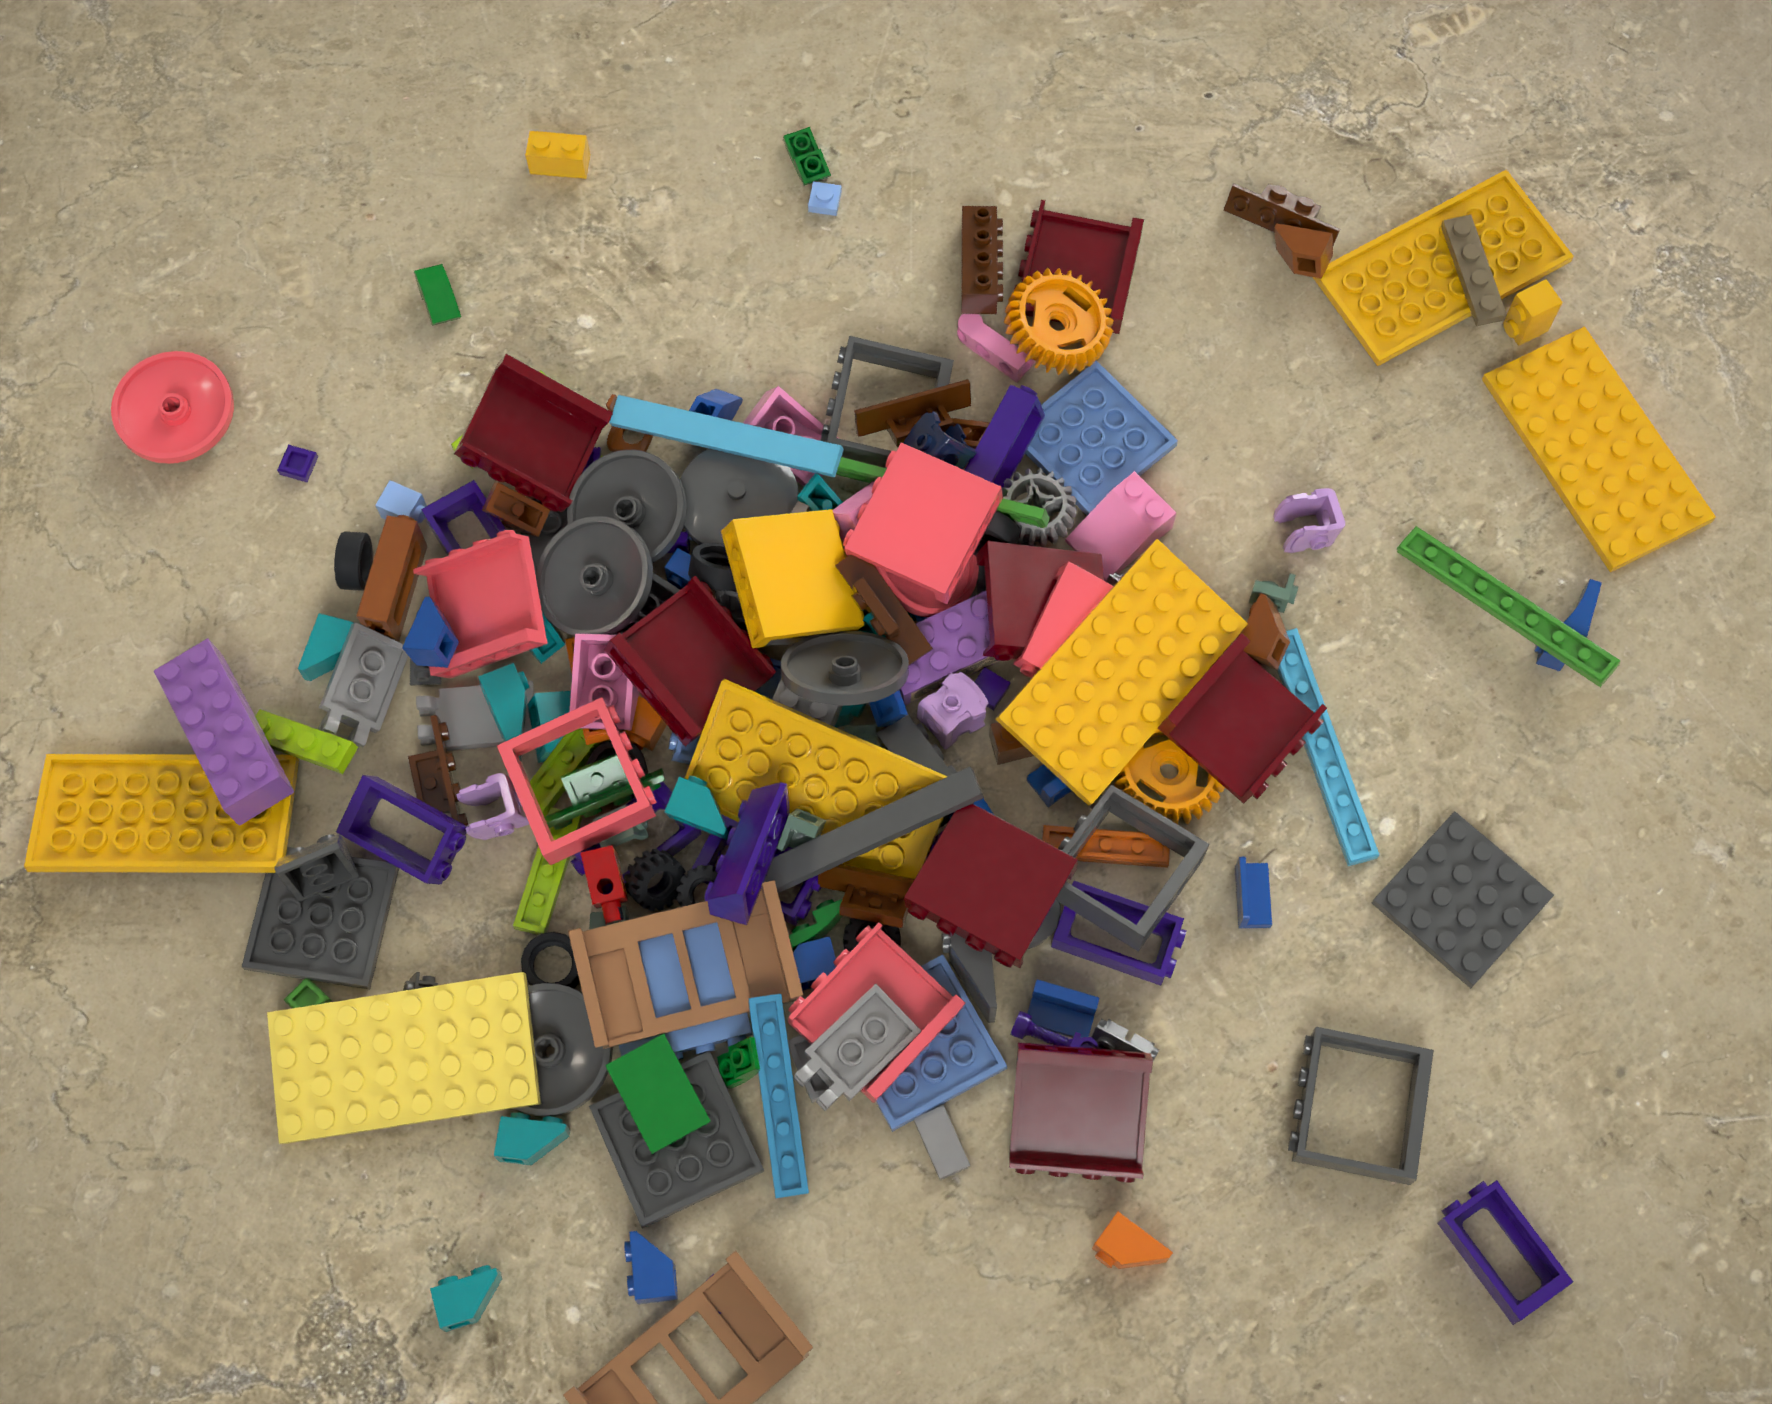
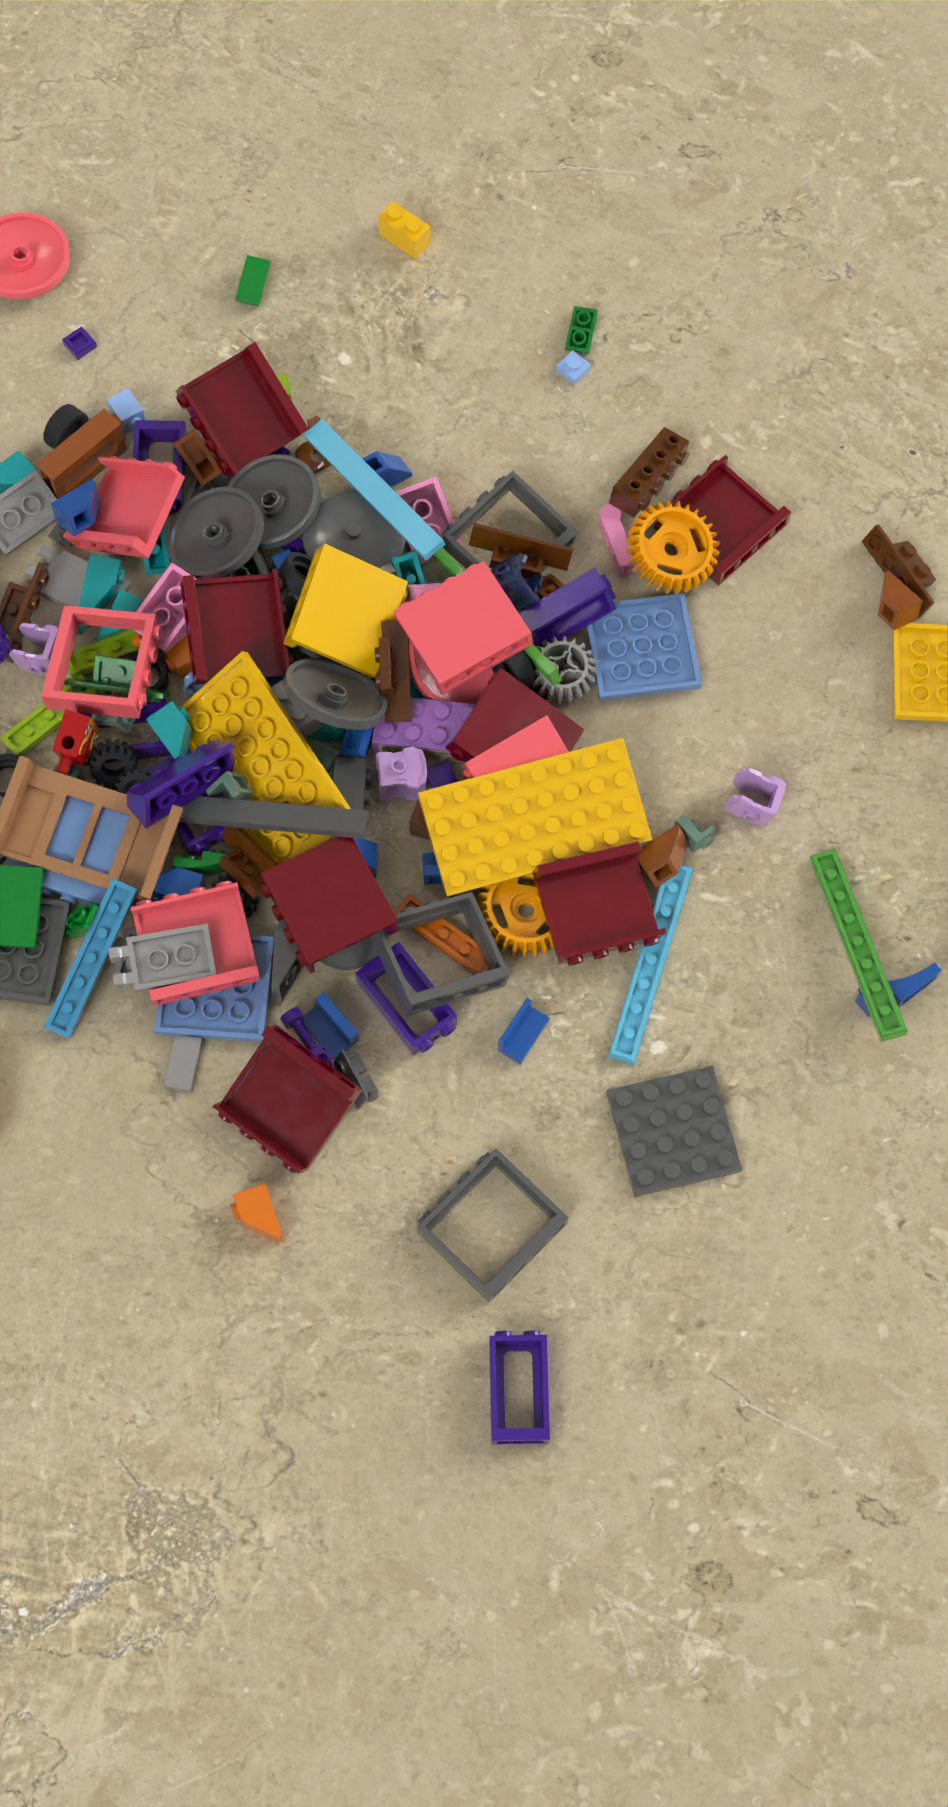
camera: 30 degrees right, 0 degrees up
(1123, 524) = (618, 715): bright pink slope -> none

